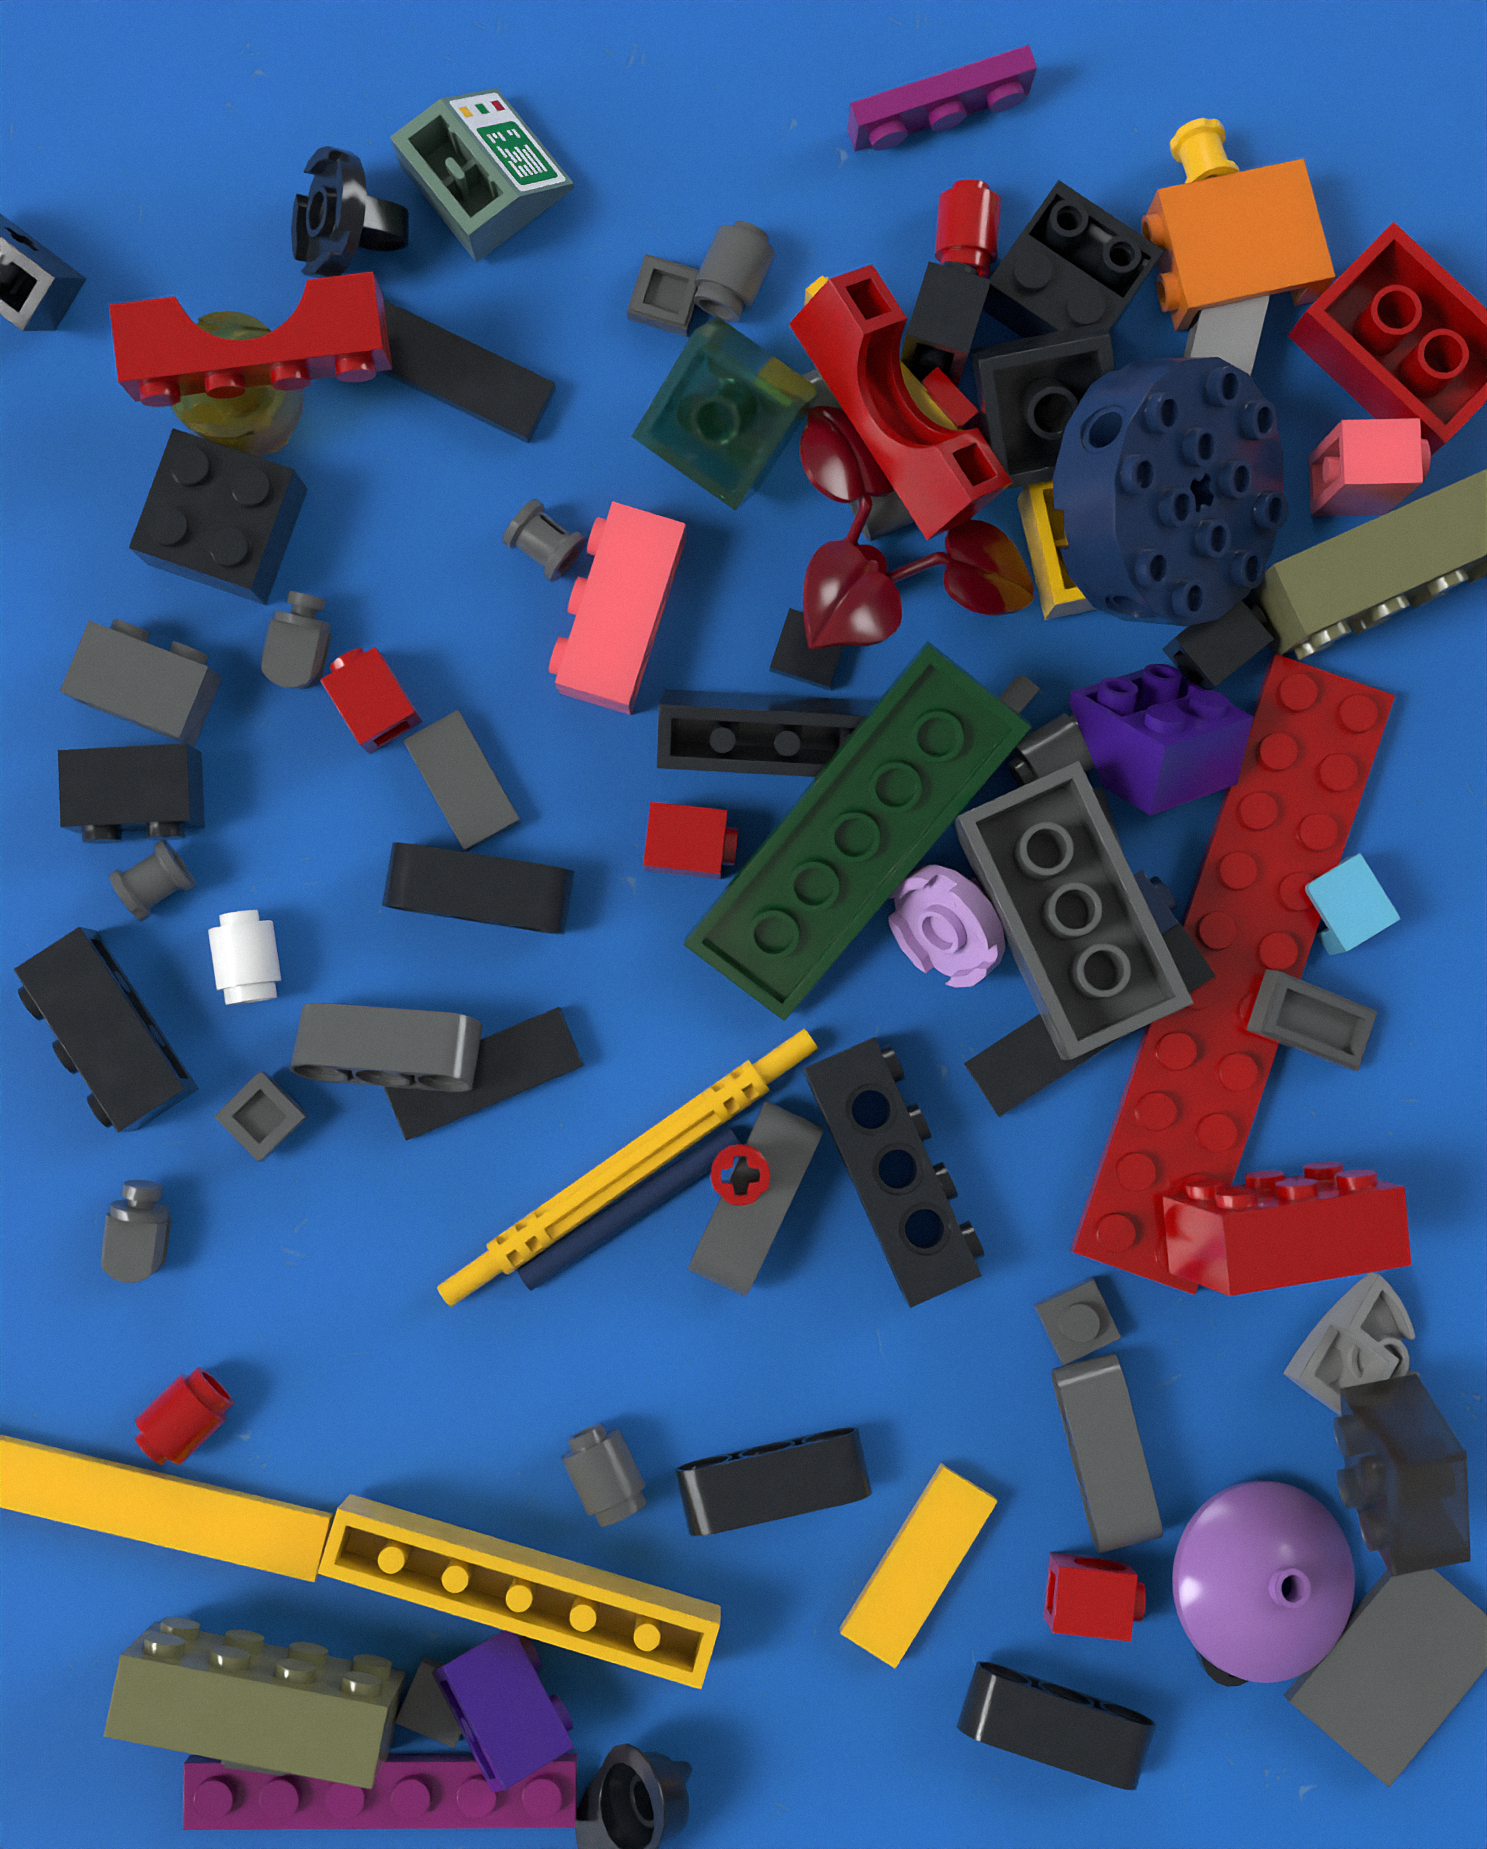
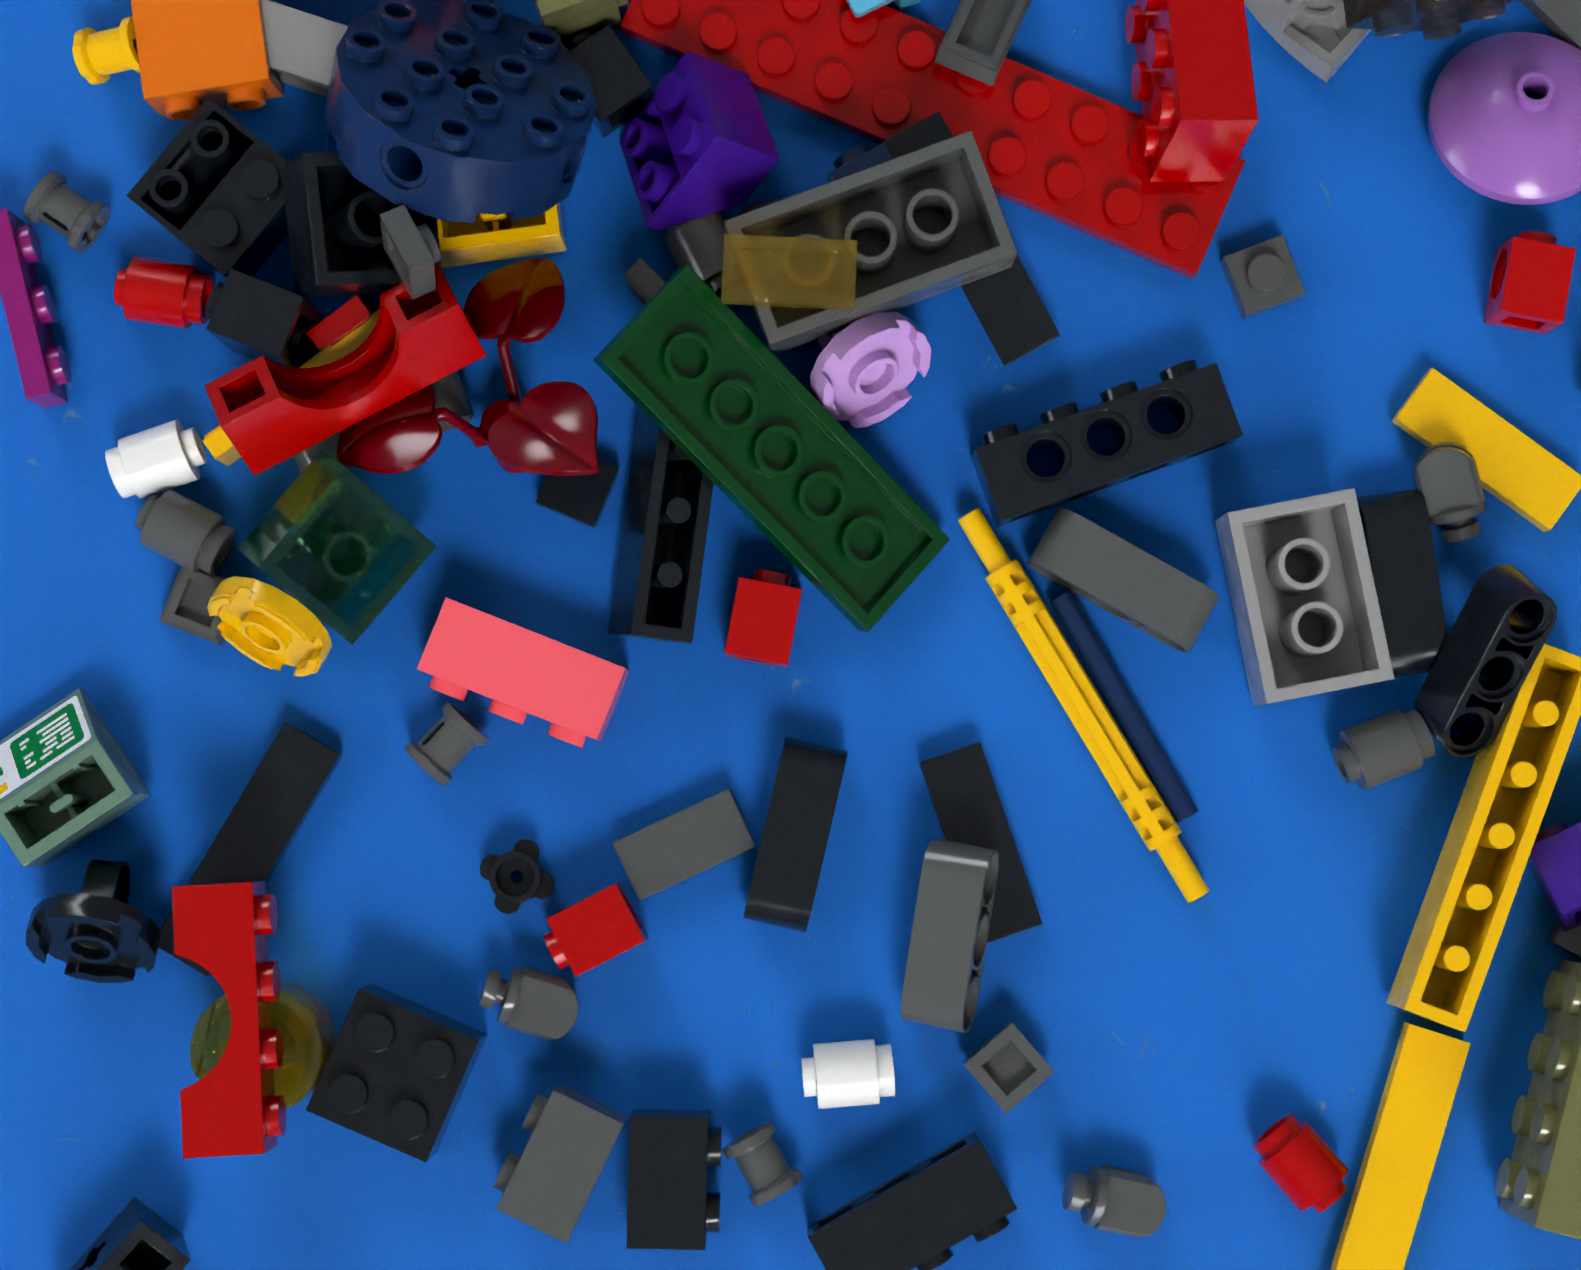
camera: 80 degrees left, 0 degrees up
(423, 602) = (499, 870): none -> black plate
(644, 355) = (269, 625): none -> yellow tile
(697, 1571) = (1485, 660): none -> black beam
(748, 1383) = (1304, 597): none -> light grey brick
(755, 1187) = (1089, 602): red bush -> none
(801, 235) = (156, 460): none -> white brick
(872, 1527) = (1451, 490): none -> dark grey arm
(1021, 450) = (410, 250): none -> dark grey plate
(1031, 828) = (789, 272): none -> clear yellow tile
(1040, 130) = (66, 211): none -> dark grey bush
(1106, 1453) = (1392, 258): dark grey beam -> none

